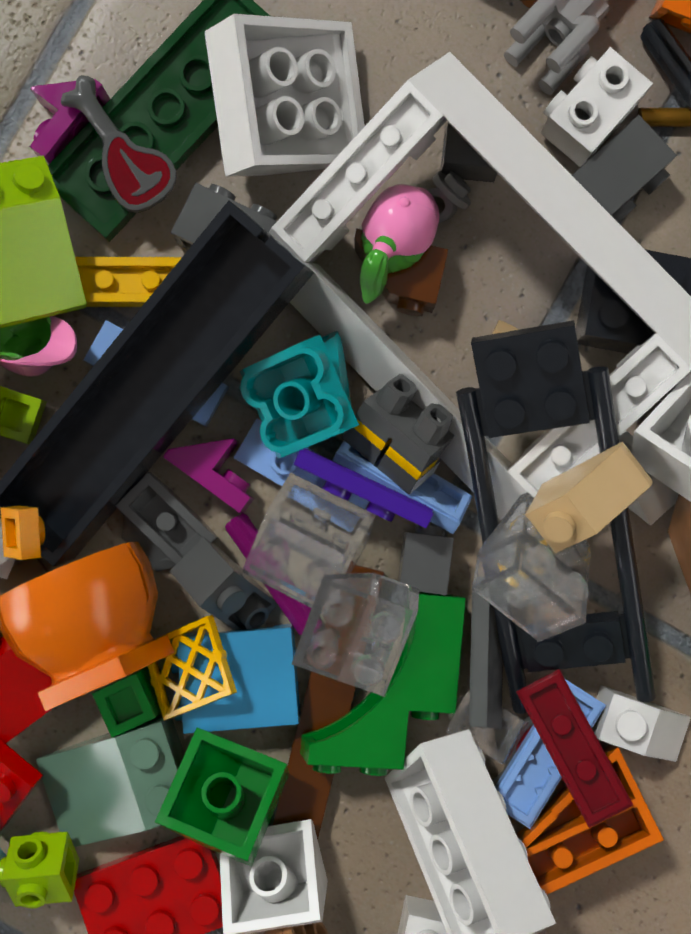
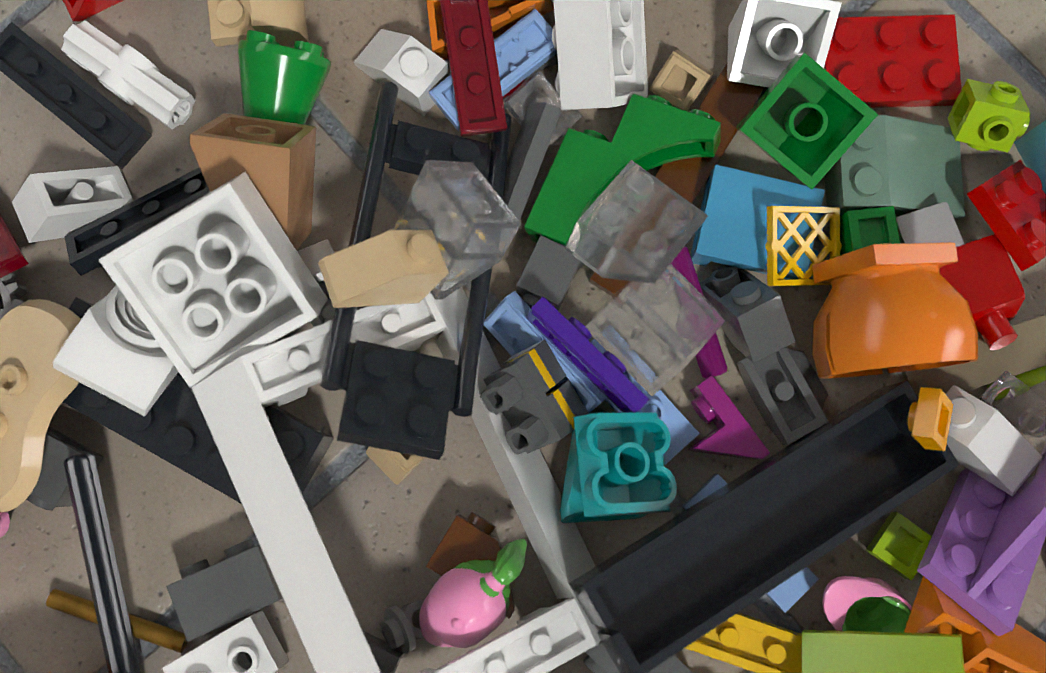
camera: 160 degrees left, 5 degrees down
(70, 725) = (929, 225): none -> light grey panel
(357, 808) = (681, 80): none -> tan slope

